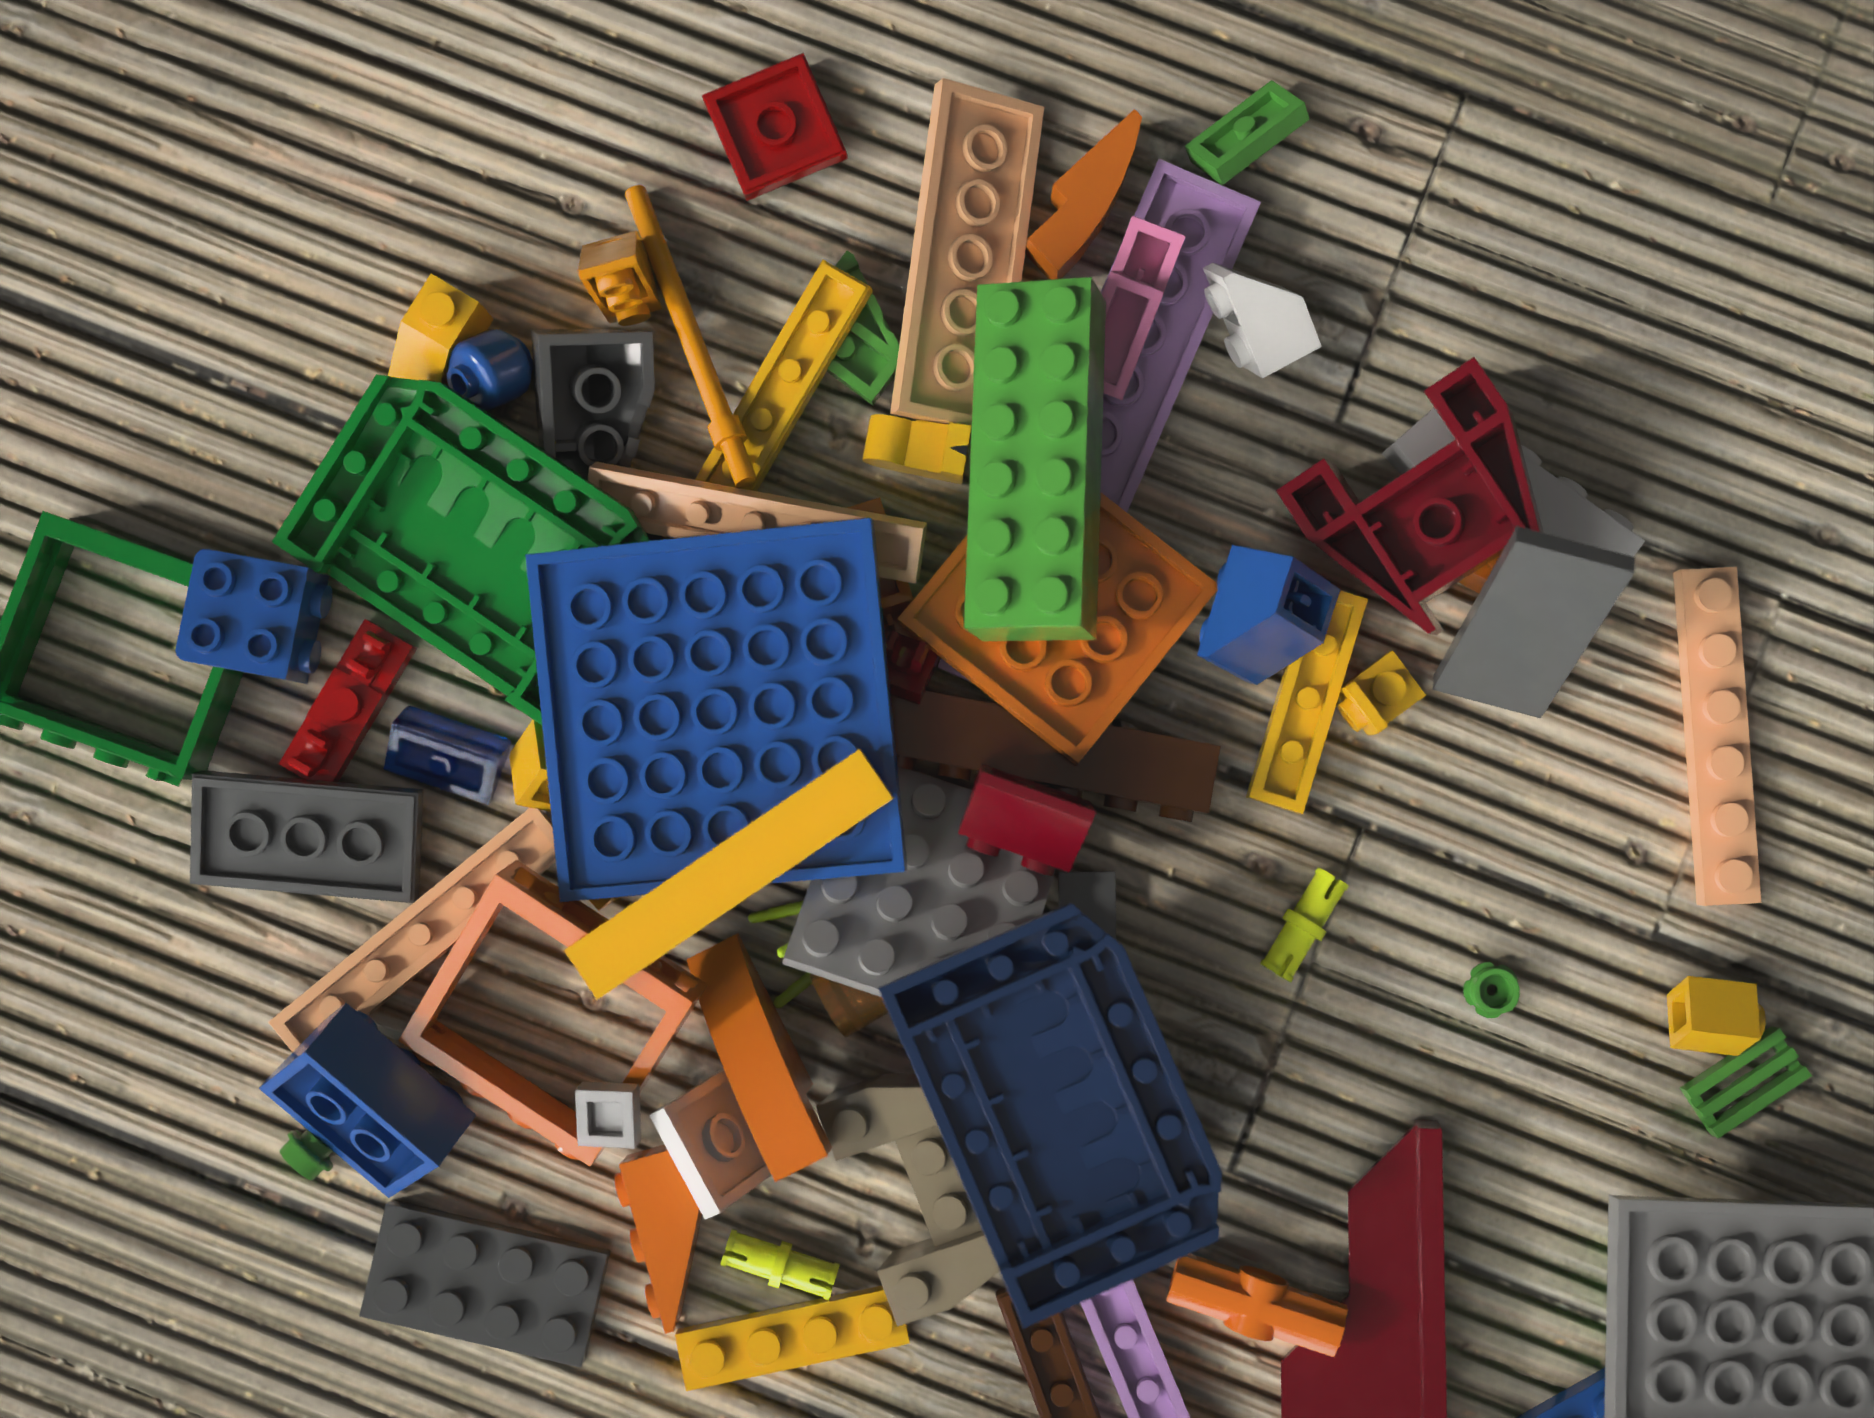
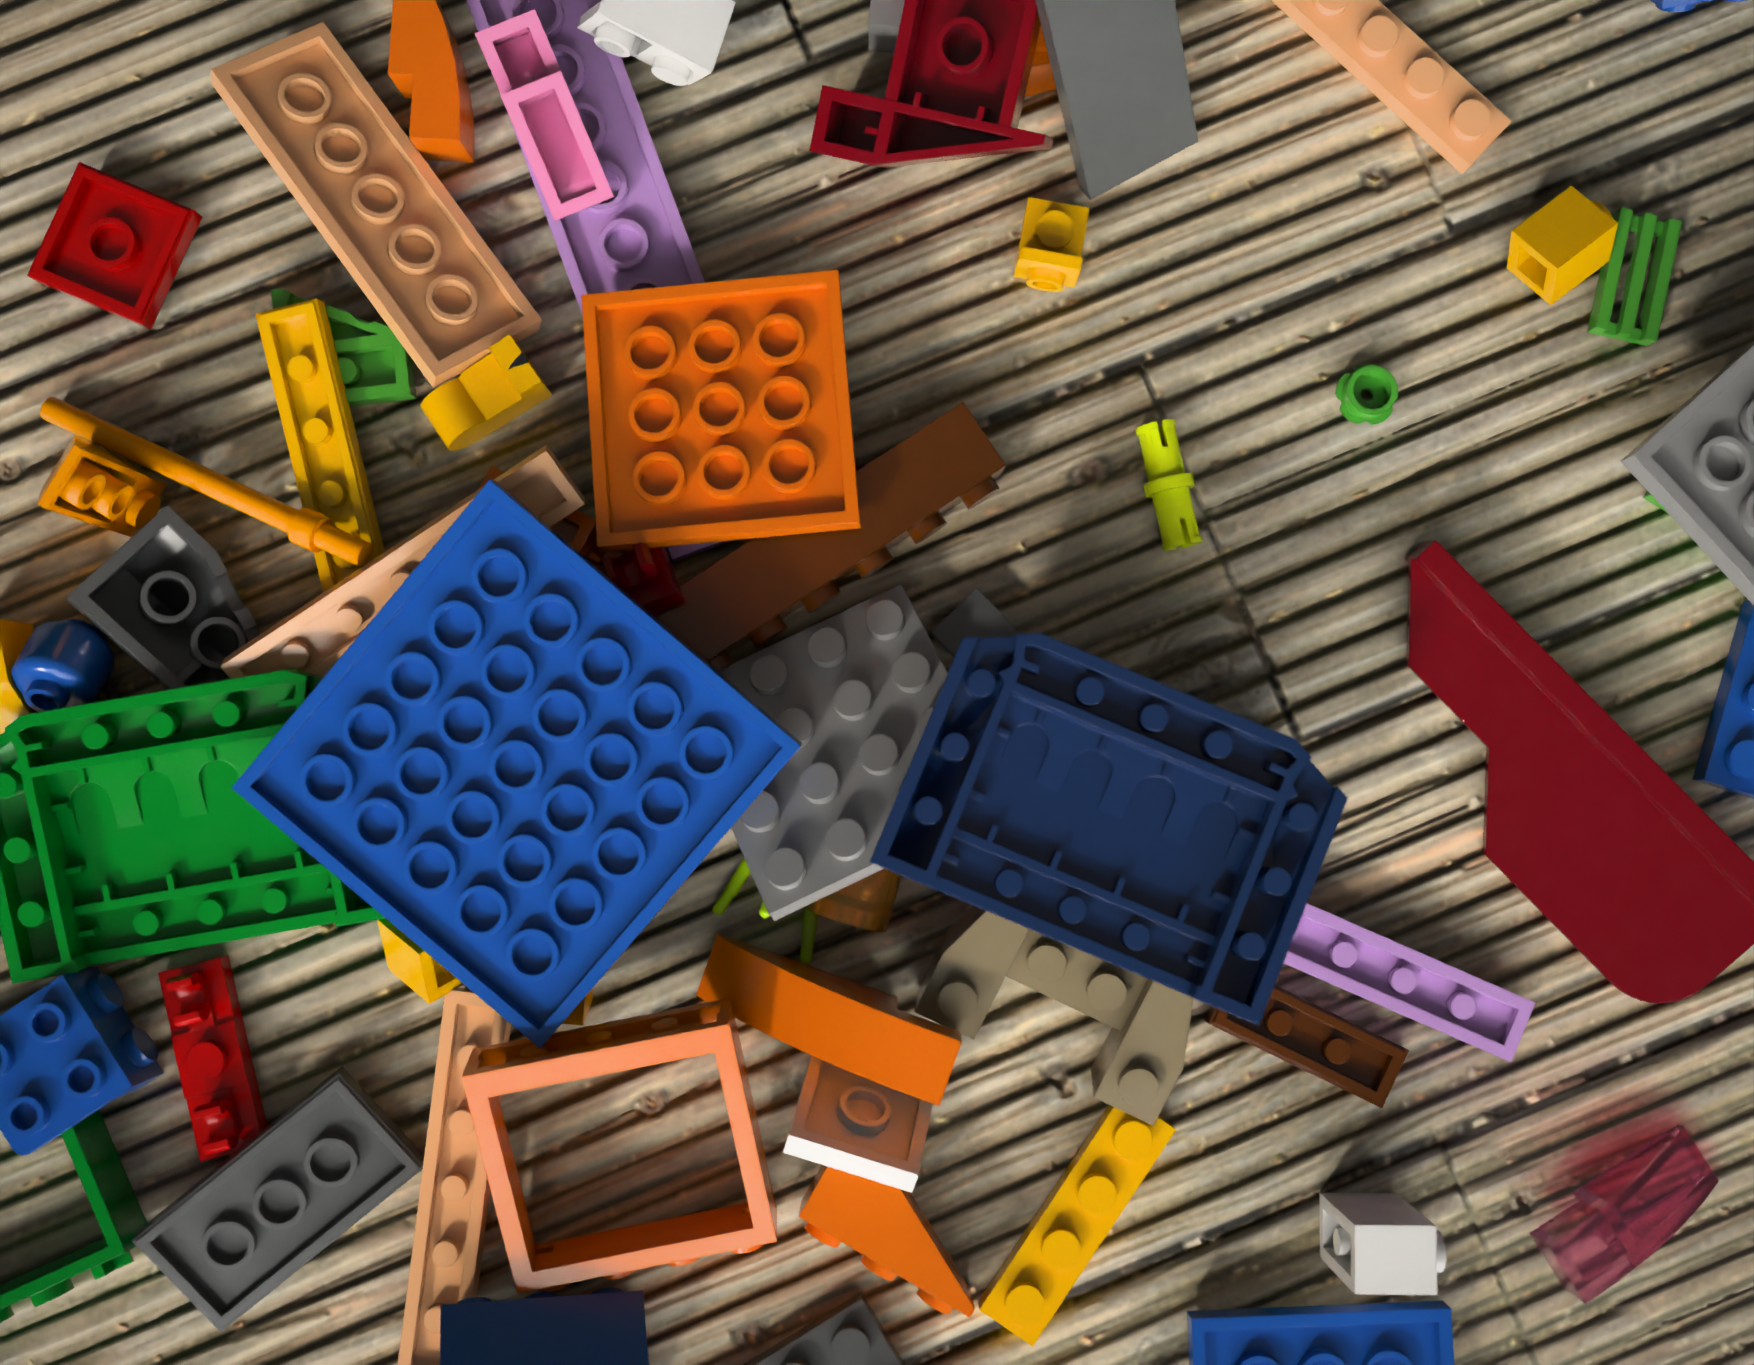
camera: 50 degrees left, 0 degrees up
(446, 754) = (335, 1019): clear blue slope -> none
(608, 1115) = (748, 1185): light grey plate -> none
(728, 874) = (655, 889): yellow tile -> none
(780, 1264) = (1010, 1168): neon yellow pin -> none
(1026, 820) = (860, 610): dark red slope -> none
(1036, 461) = (585, 305): bright green brick -> none
(1257, 1303) = (1424, 824): orange piece -> none
(1265, 614) = (896, 257): blue slope -> none
(1305, 713) = (996, 300): yellow plate -> none

